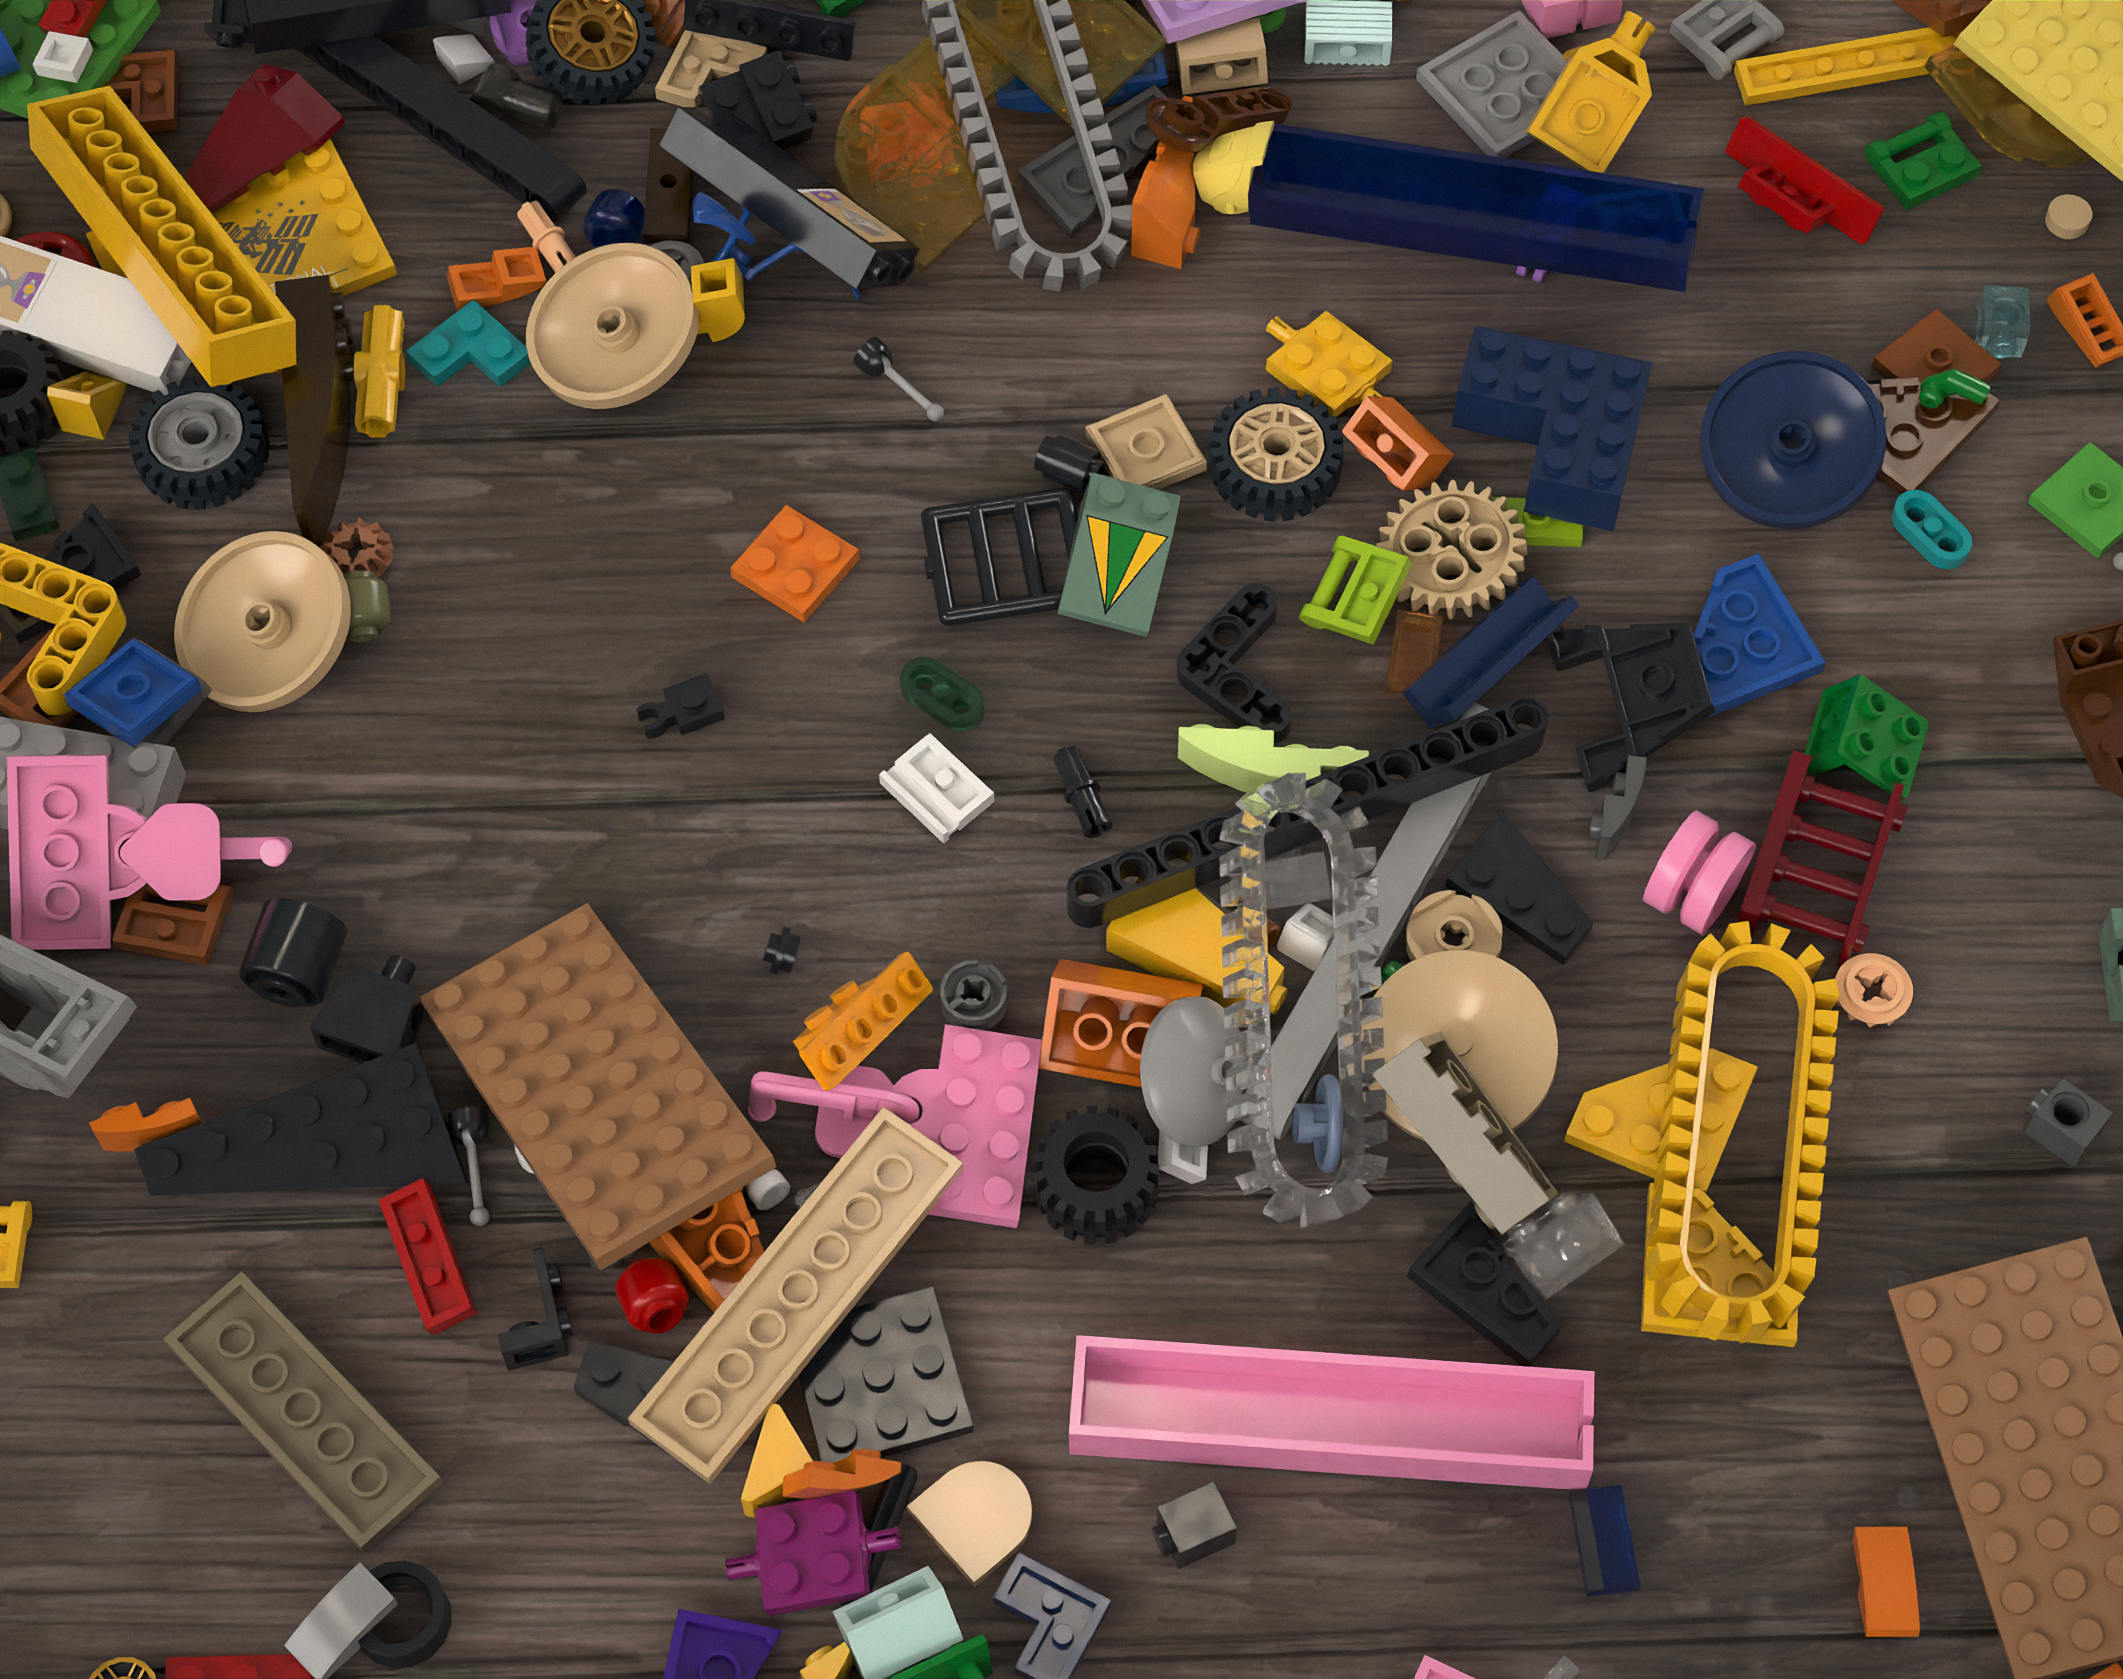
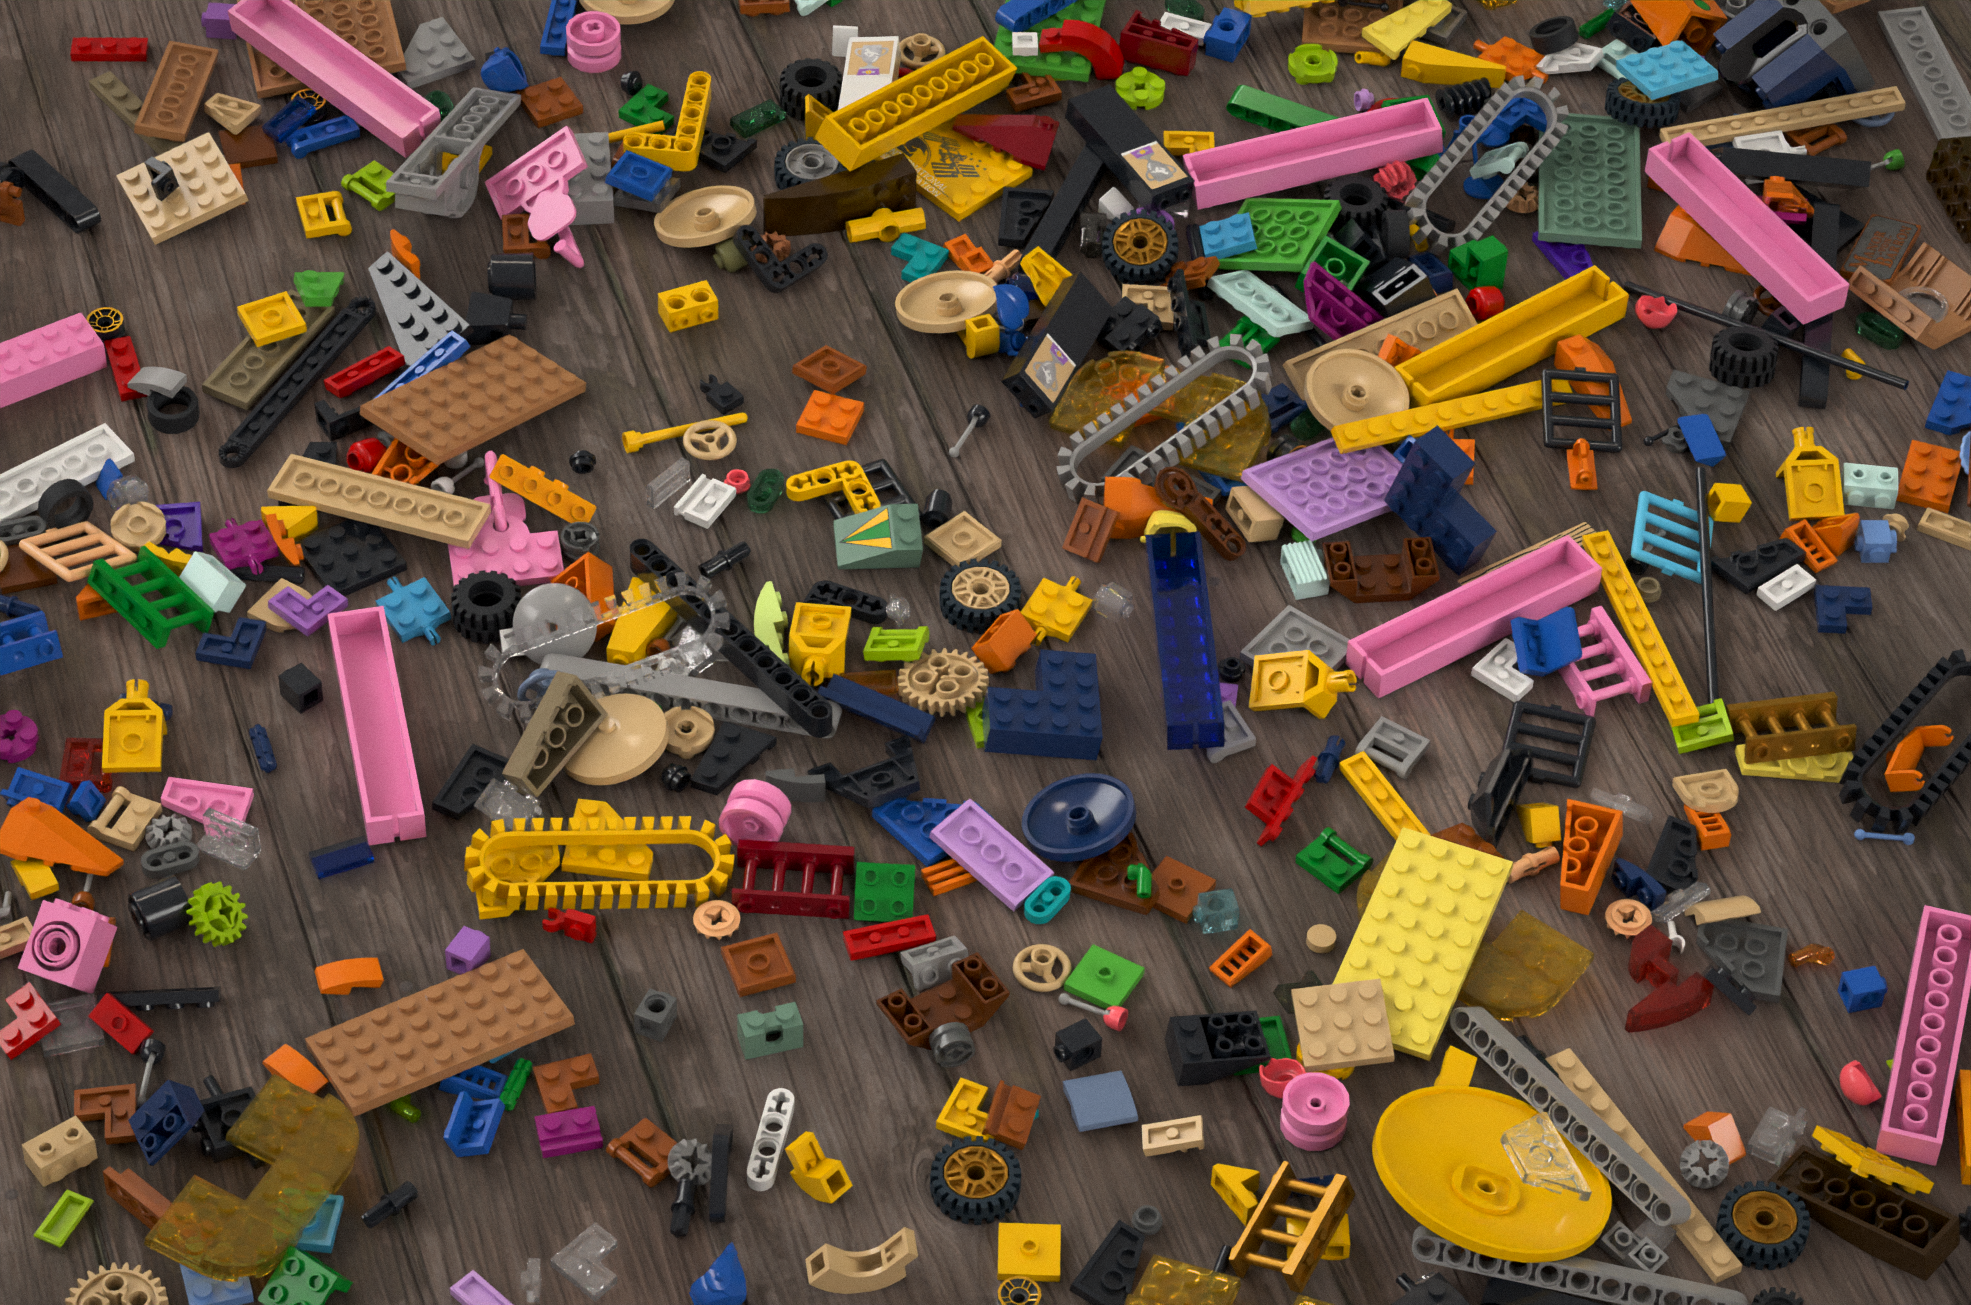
camera: 70 degrees right, 15 degrees down
(180, 1288) = (318, 288): none -> bright green wing
(248, 1383) = (271, 319): none -> yellow plate
(375, 562) = (774, 267): none -> black beam
(408, 1379) = (296, 382): none -> black plate
(426, 181) = (1021, 214): none -> black wing
(459, 703) = (688, 306): none -> yellow brick
(486, 1155) = (441, 354): none -> blue plate
(612, 173) = (1044, 273): none -> yellow wing
(692, 534) = (829, 369): none -> dark orange plate
(755, 862) = (634, 440): none -> yellow piece
(800, 766) = (709, 443): none -> tan piece
(880, 832) = (668, 483): none -> clear tile
(901, 721) = (739, 480): none -> coral plate
(976, 570) = (844, 481): none -> yellow beam
(1029, 1473) = (307, 614): none -> medium lavender plate
(1048, 1299) = (414, 610): none -> dark azure plate
(1194, 267) = (1091, 530): none -> dark orange plate
(1272, 572) = (898, 609): none -> clear plate
(1316, 1621) = (262, 748): none -> dark blue axle
(1329, 689) = (818, 640): none -> yellow plate
(1344, 283) = (1113, 602): none -> clear head
(1555, 976) = (675, 777): none -> black plate
(1726, 106) = (1329, 759): none -> dark blue axle
(1835, 609) = (946, 870): none -> orange tile
(1839, 573) = (991, 854): none -> lavender plate
(1854, 1197) = (574, 923): none -> red plate
(1877, 1376) = (467, 951): none -> medium lavender brick
(1964, 757) = (889, 937): none -> red plate
(1983, 952) = (758, 964): none -> dark orange plate
(2024, 705) = (933, 961): none -> light grey bracket
(2060, 562) = (1041, 964): none -> tan piece

